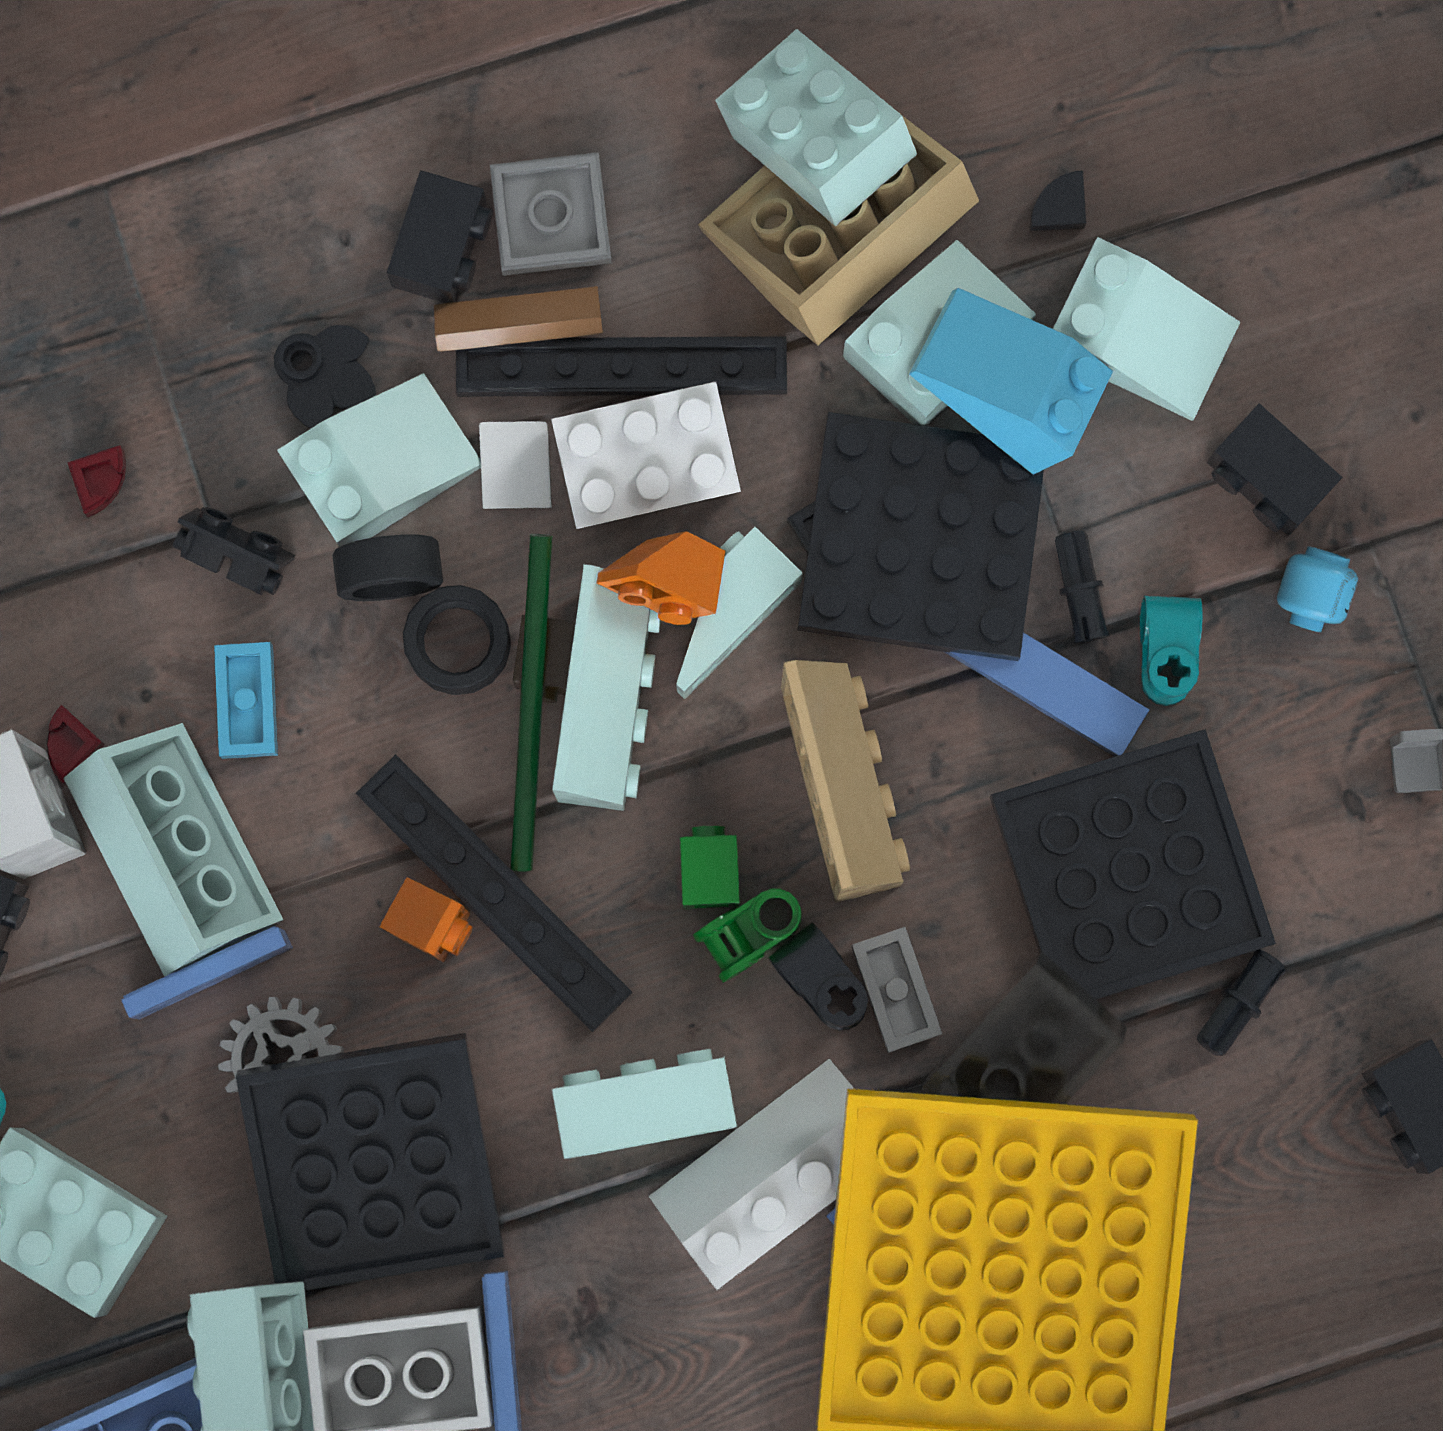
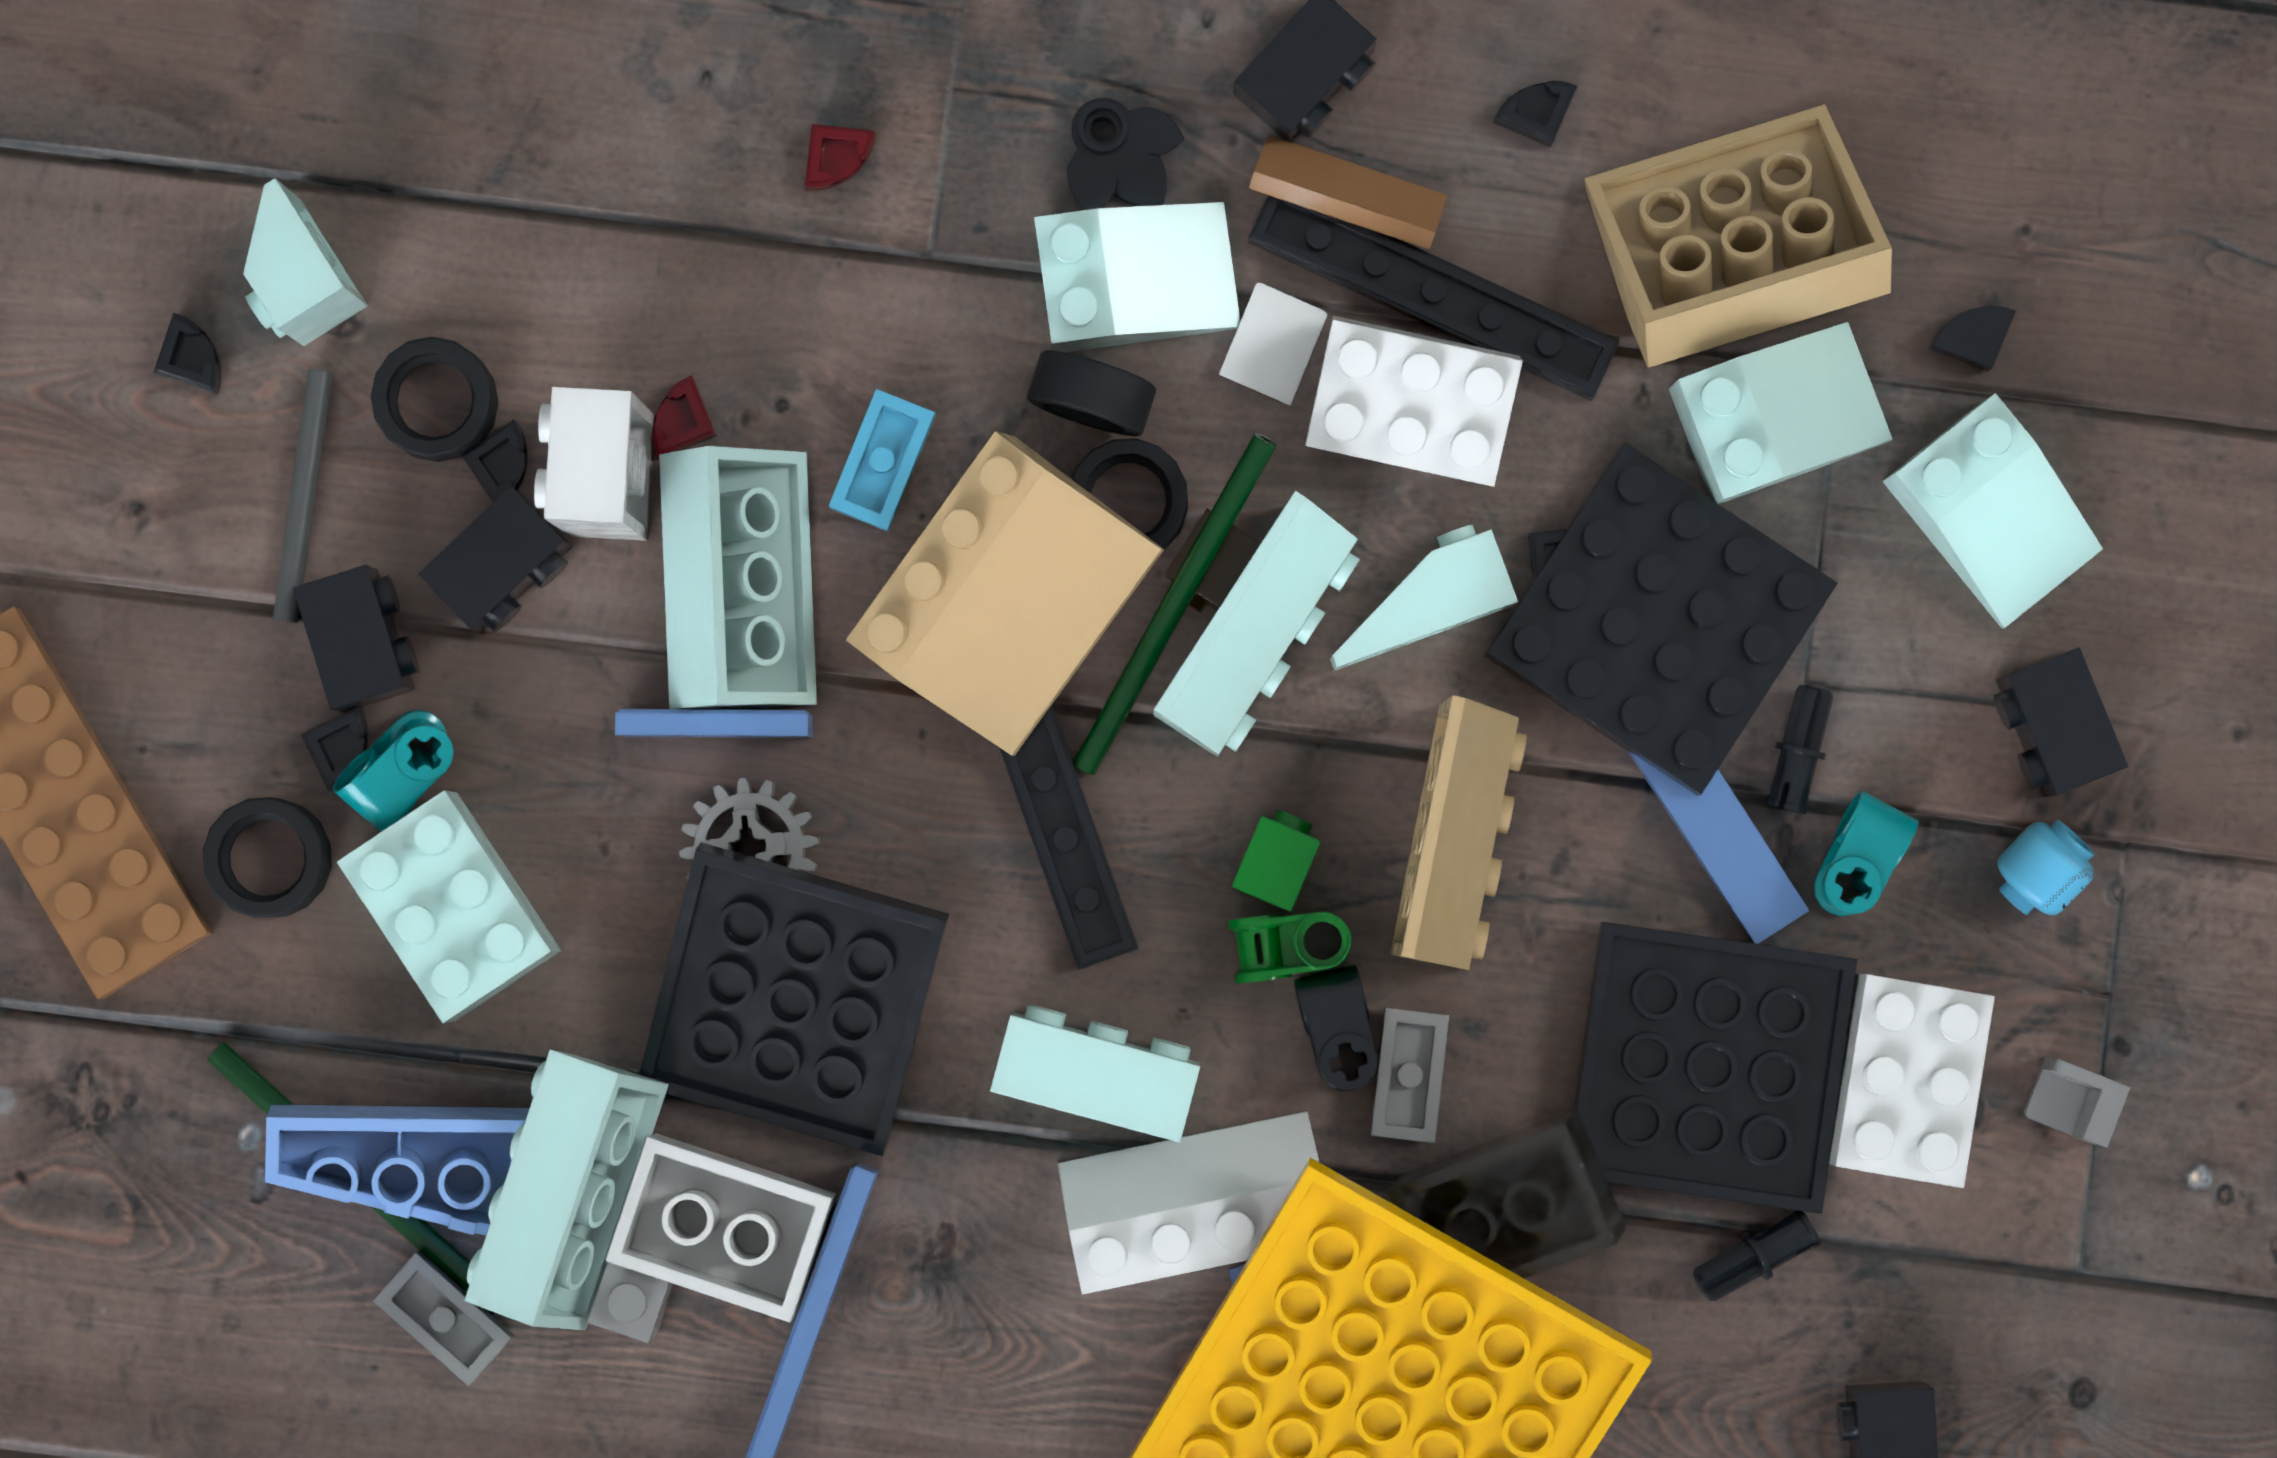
camera: 30 degrees right, 5 degrees up
(253, 554) = (960, 312): black hinge -> none
(391, 757) = (1004, 593): none -> tan slope
(428, 920) = (962, 778): orange slope -> none
(550, 214) = (1434, 95): light grey plate -> none
(636, 190) = (1537, 110): none -> black tile
(669, 575) = (1378, 541): orange slope -> none
(816, 127) = (1757, 137): light aqua brick -> none
(1012, 379) = (1833, 501): medium azure slope -> none
(1293, 803) = (1910, 1080): none -> white brick

